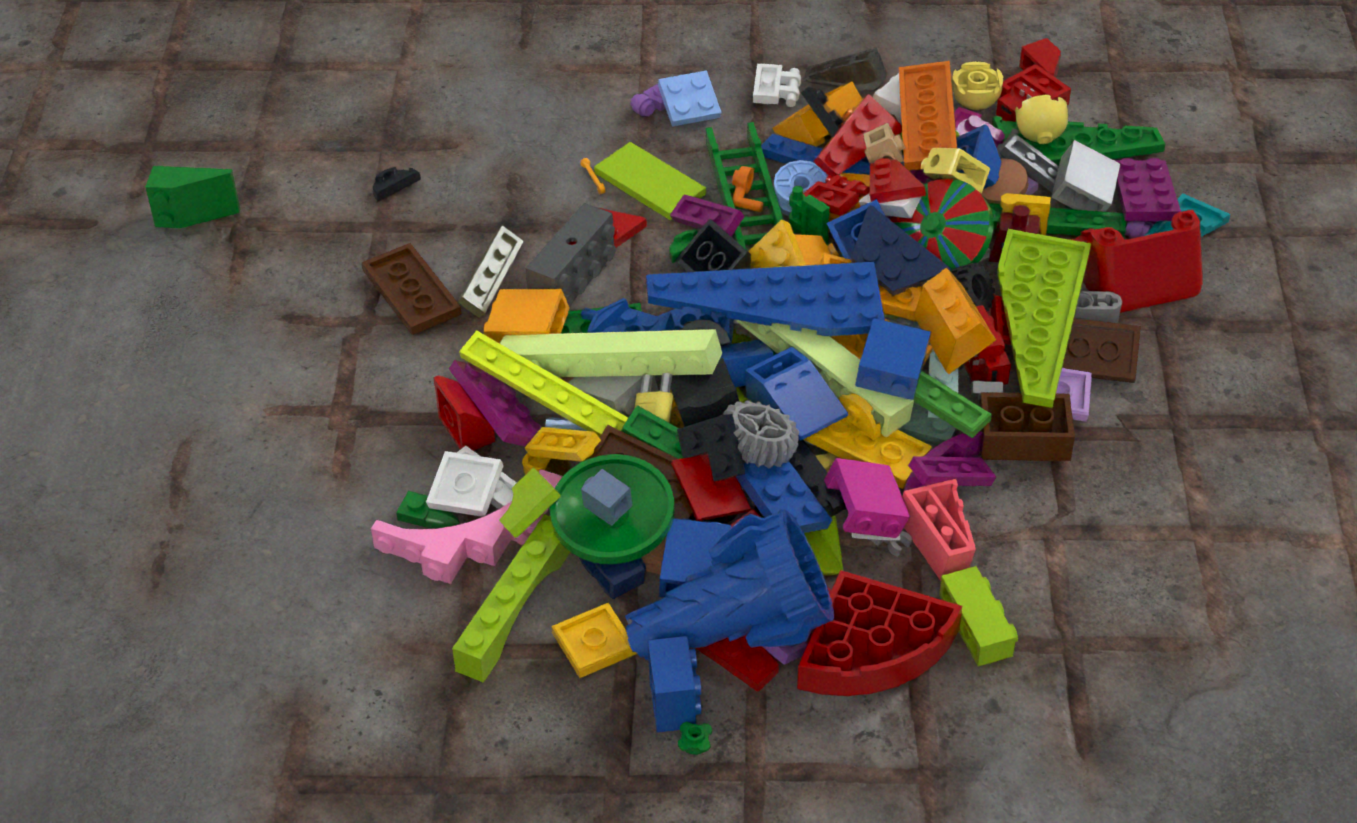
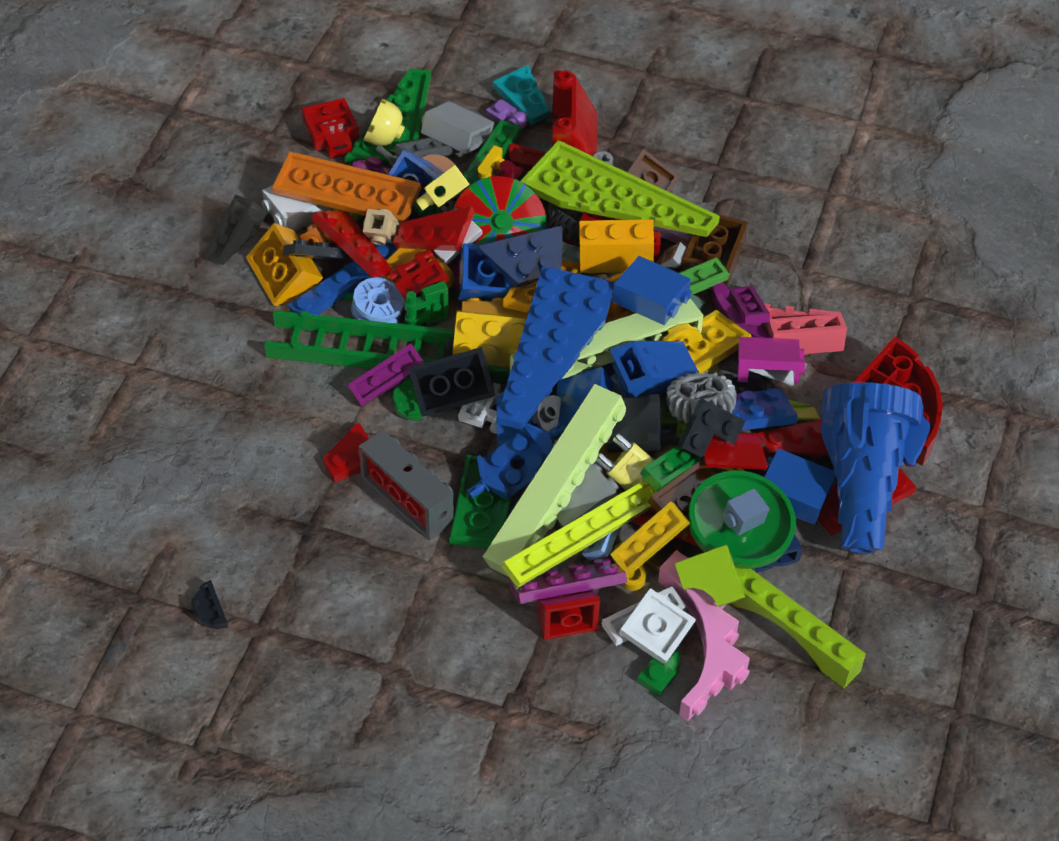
camera: 75 degrees left, 5 degrees up
(190, 195) = (155, 793): green slope -> none
(411, 288) = (373, 622): reddish brown plate -> none
(490, 271) = (380, 553): plate -> none
(526, 313) = (464, 536): light orange brick -> none
(585, 163) = (295, 447): light orange hinge -> none
(593, 640) = (844, 580): yellow plate -> none
(647, 102) = (191, 375): medium lavender plate -> none
(647, 179) = (303, 408): lime tile -> none
(673, 683) = (918, 533): blue brick -> none
(689, 98) = (211, 348): light blue plate -> none
(694, 745) = (953, 545): green plate -> none
(743, 181) = (351, 339): orange plate -> none
(769, 88) = (216, 288): white plate -> none
(977, 85) = (310, 143): light yellow cylinder -> none
(982, 618) = (870, 337): lime brick -> none
(1043, 54) = (289, 105): red slope -> none
(1146, 190) = (485, 98): magenta plate -> none

